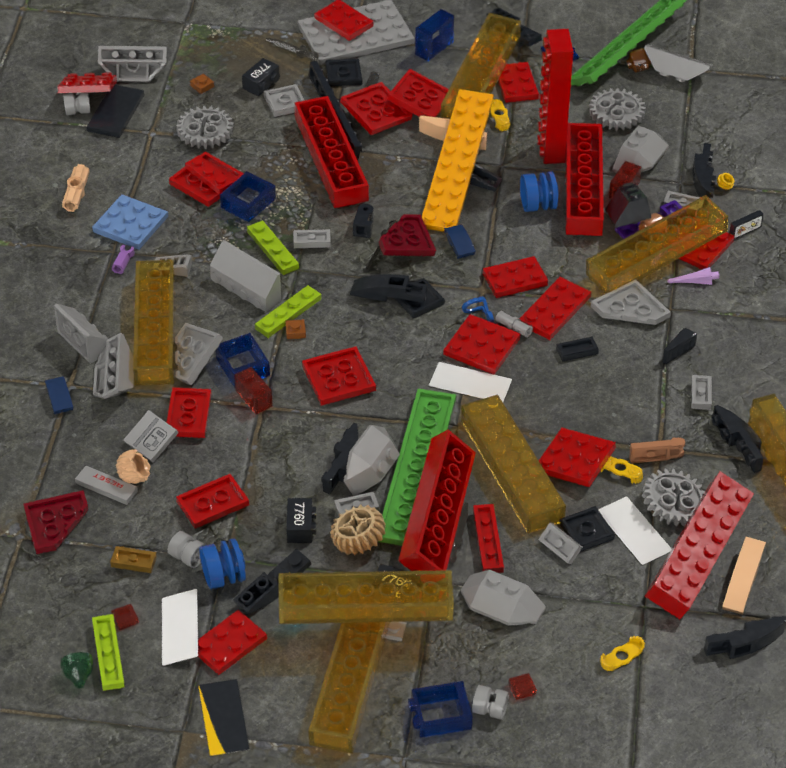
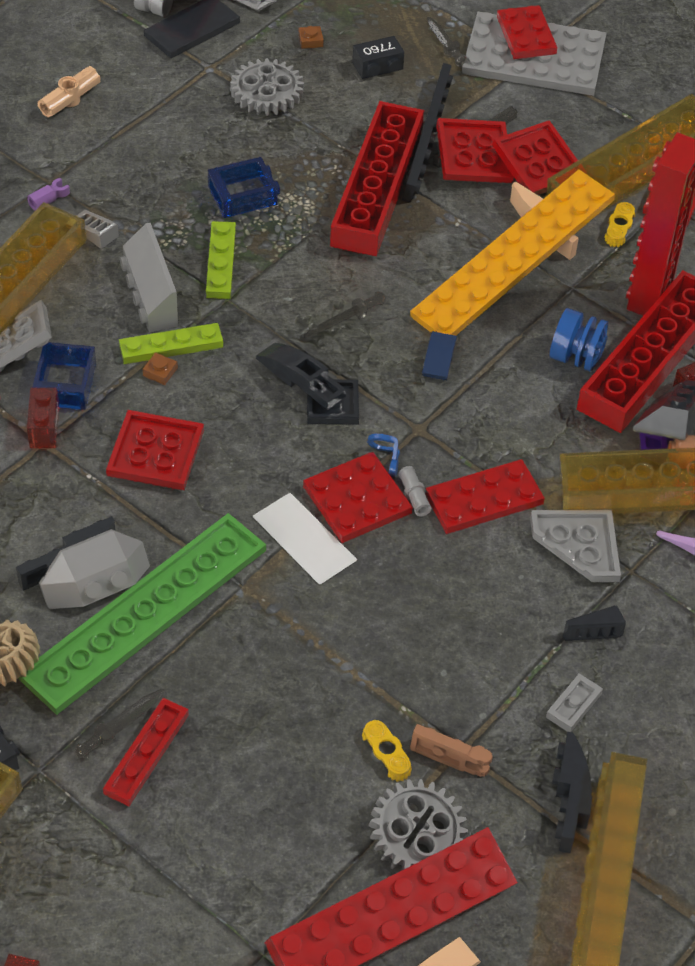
camera: 30 degrees right, 5 degrees up
(130, 221) = (95, 157): medium blue plate -> none
(194, 187) = (215, 143): red plate -> none
(208, 174) = (218, 140): red plate -> none
(282, 99) = (384, 90): light grey tile -> none
(312, 238) = (271, 270): light grey plate -> none
(343, 72) = (480, 93): black tile -> none
(349, 502) = (43, 623): light grey plate -> none
(363, 221) = (346, 276): black leg -> none
(407, 238) = (376, 321): dark red plate -> none
(425, 45) = (614, 79): clear blue window -> none
(437, 504) = (110, 677): red brick -> none
(484, 174) = (540, 287): black slope -> none
(502, 598) = (91, 844): light grey wedge -> none
(512, 463) = (255, 672): clear yellow brick -> none
(515, 277) = (469, 432): red plate -> none
(560, 543) = (225, 808): light grey plate -> none
(576, 456) = (341, 703): red plate -> none
(577, 349) = (467, 562): black tile -> none
(587, 528) = (278, 807): black tile -> none
(634, 530) = (337, 842): white sticker -> none

